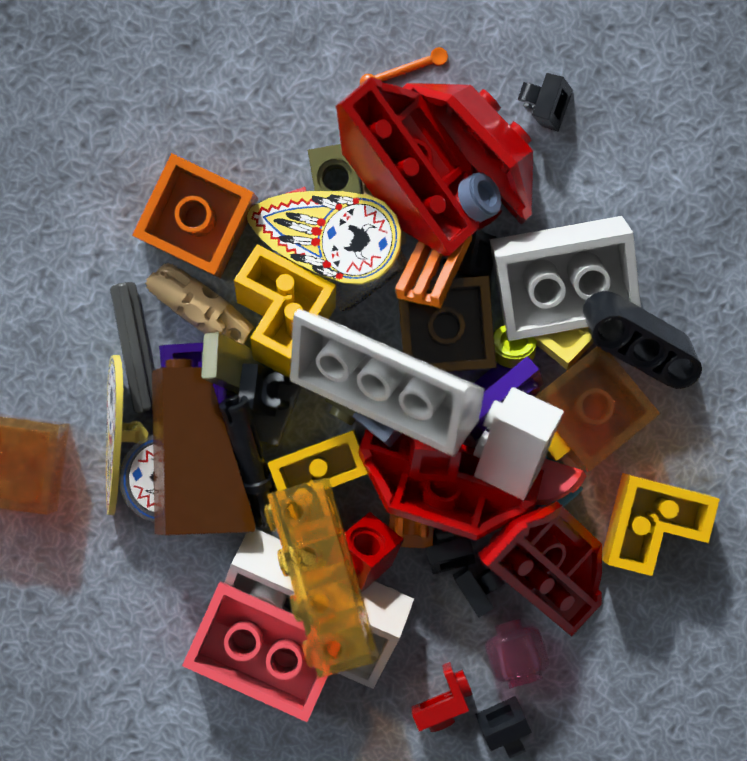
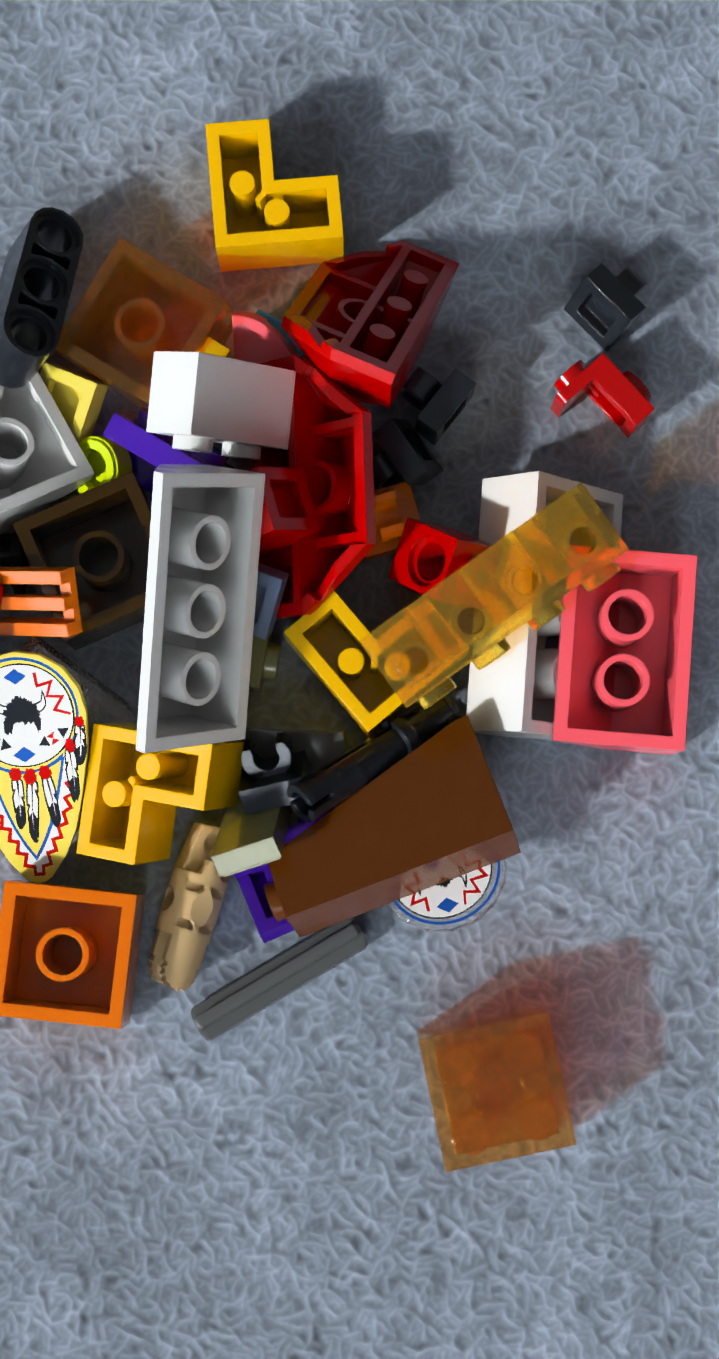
camera: 115 degrees left, 5 degrees down
(117, 431) = (398, 958): light yellow shield -> none
(517, 654) = (507, 320): clear pink head -> none

